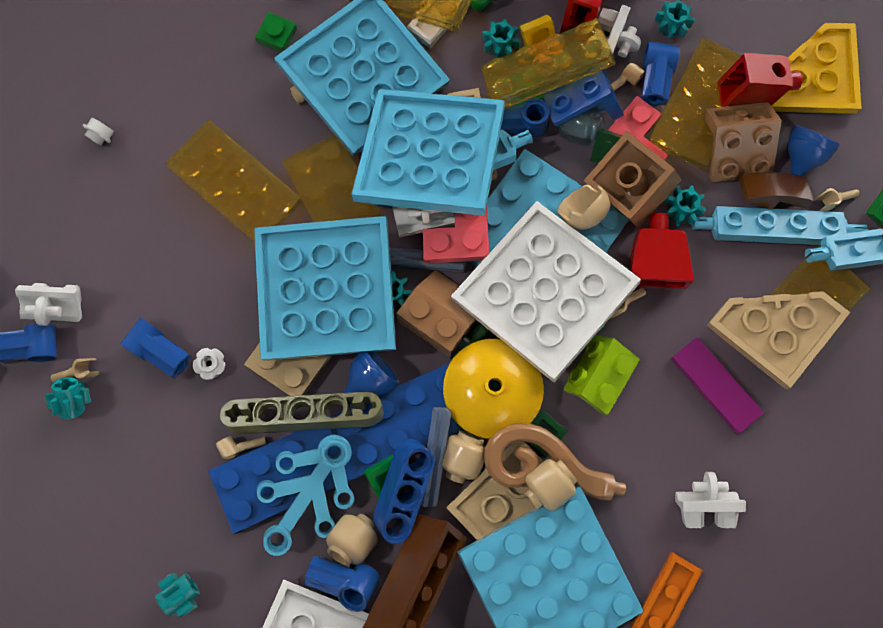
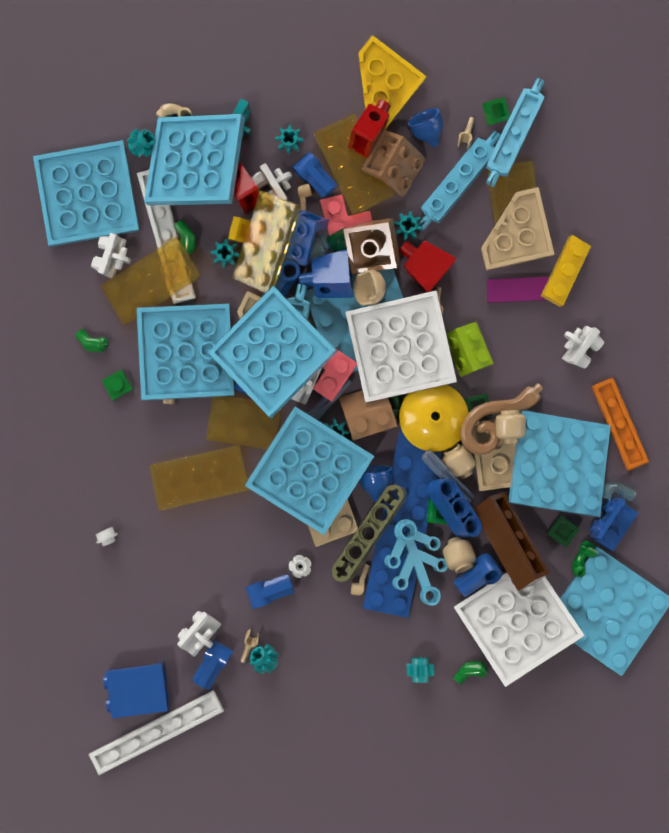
camera: 50 degrees left, 10 degrees up
(563, 159) = (330, 276): none -> blue torso
(770, 188) = (435, 166): reddish brown slope -> none
(780, 419) = (565, 271): none -> yellow plate

